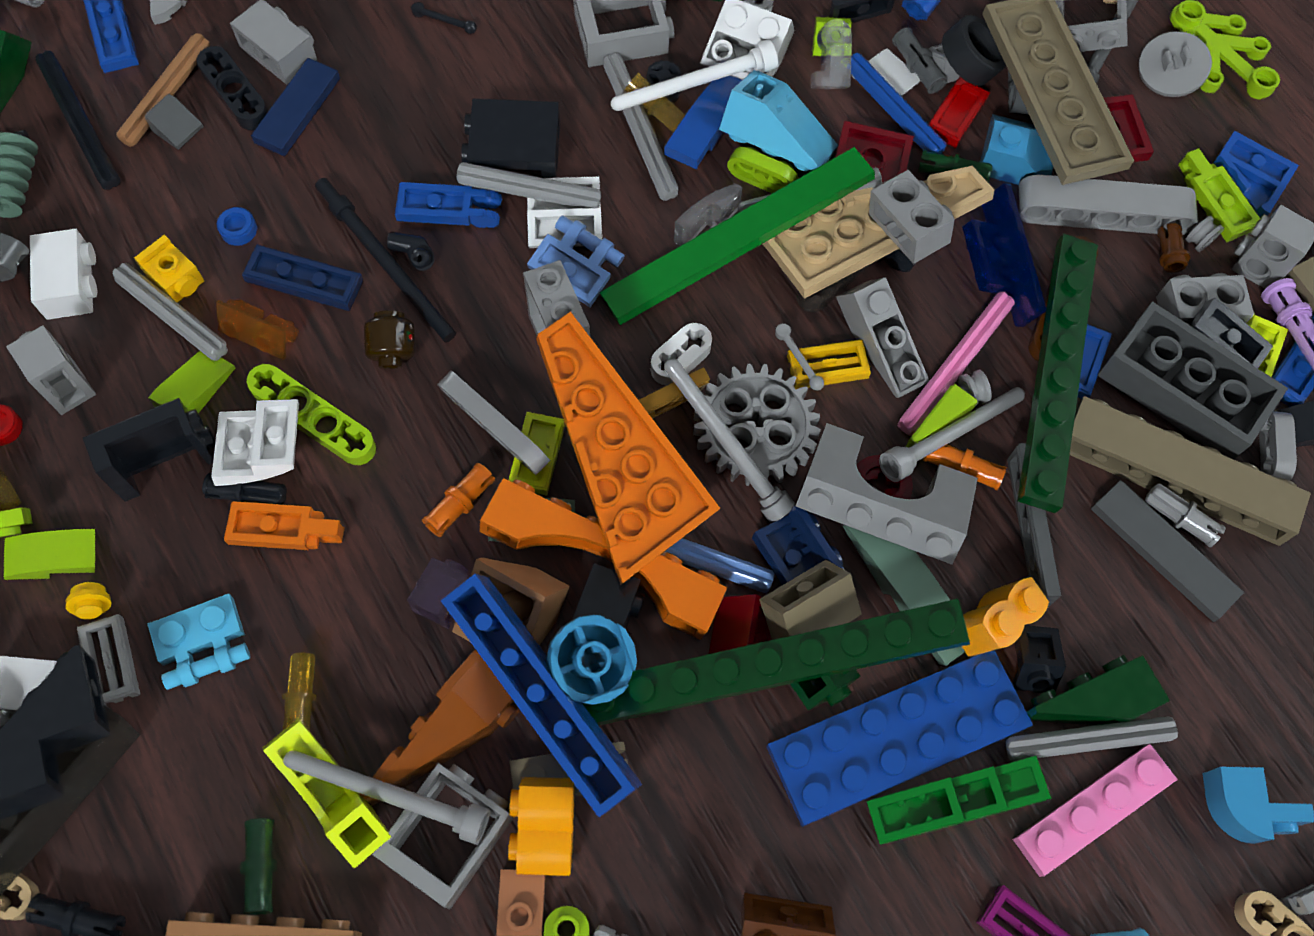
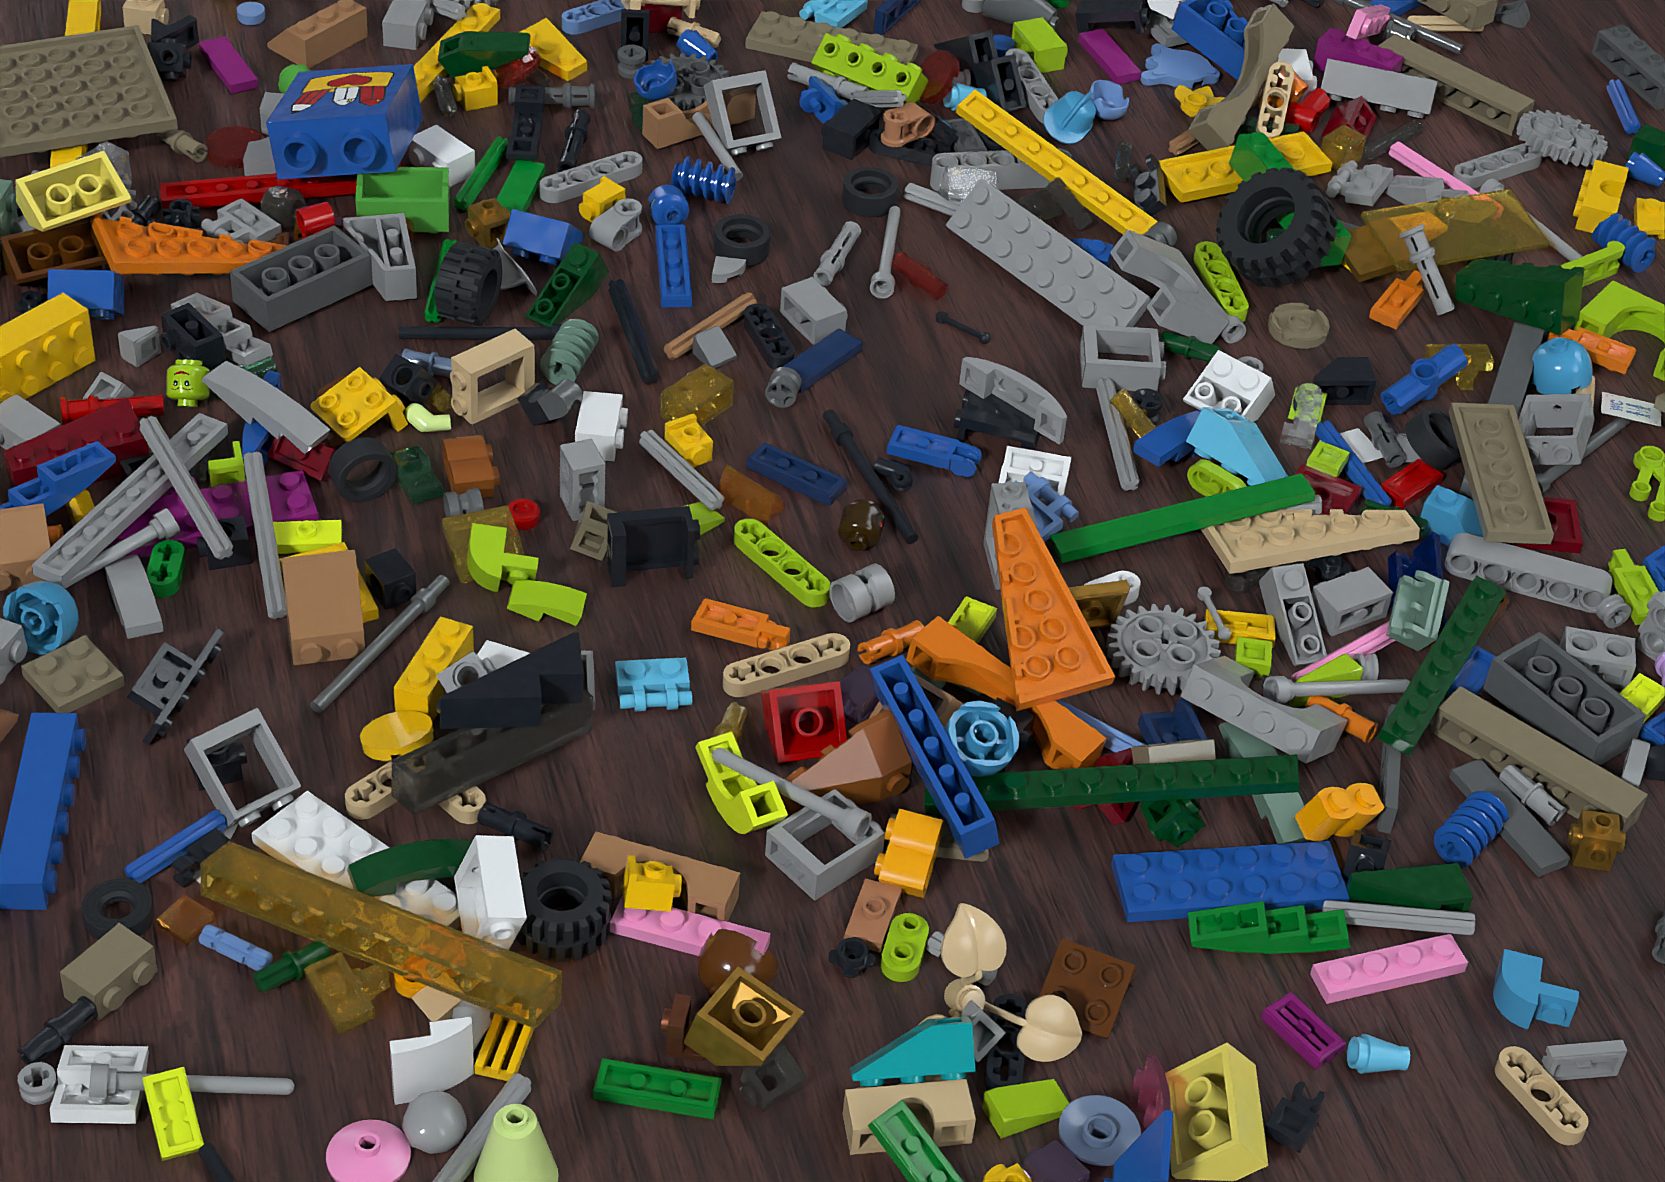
camera: 15 degrees right, 25 degrees down
(78, 422) = (591, 531): none -> dark tan brick
(88, 600) = (573, 625): yellow plate -> none
(167, 201) = (699, 392): none -> clear yellow brick
(236, 226) = (749, 428): blue tile -> none
(247, 492) = (699, 590): black axle -> none
(255, 443) = (734, 564): white slope -> none
(258, 866) = (669, 827): clear green pin -> none
(262, 160) = (777, 392): none -> dark grey wheel
(342, 560) = (748, 678): none -> tan beam
(382, 651) = (804, 720): none -> red slope
(413, 438) = (862, 592): none -> light grey wheel
(485, 100) = (989, 378): none -> light grey slope
(494, 423) = (936, 592): light grey beam -> none
(528, 186) = (1007, 448): light grey axle -> none
(708, 211) = (1160, 496): clear slope -> none
(761, 58) = (1236, 398): white piece -> none
(773, 500) = (1162, 698): light grey piece -> none
(856, 410) = (1254, 655): none -> lime tile
(870, 108) = (1328, 459): none -> lime tile
(911, 216) = (1337, 526): light grey brick -> none
(937, 297) = (1351, 601): none -> light grey brick
(1015, 299) = (1418, 610): none -> sand green hinge
(1135, 590) = (1470, 828): none -> blue piece
(1174, 256) = (1581, 613): reddish brown pin -> none
(1175, 64) = (1625, 490): light grey piece -> none
(1231, 332) = (1608, 669): black slope -> none
(1268, 564) = (1596, 840): none -> pearl gold brick

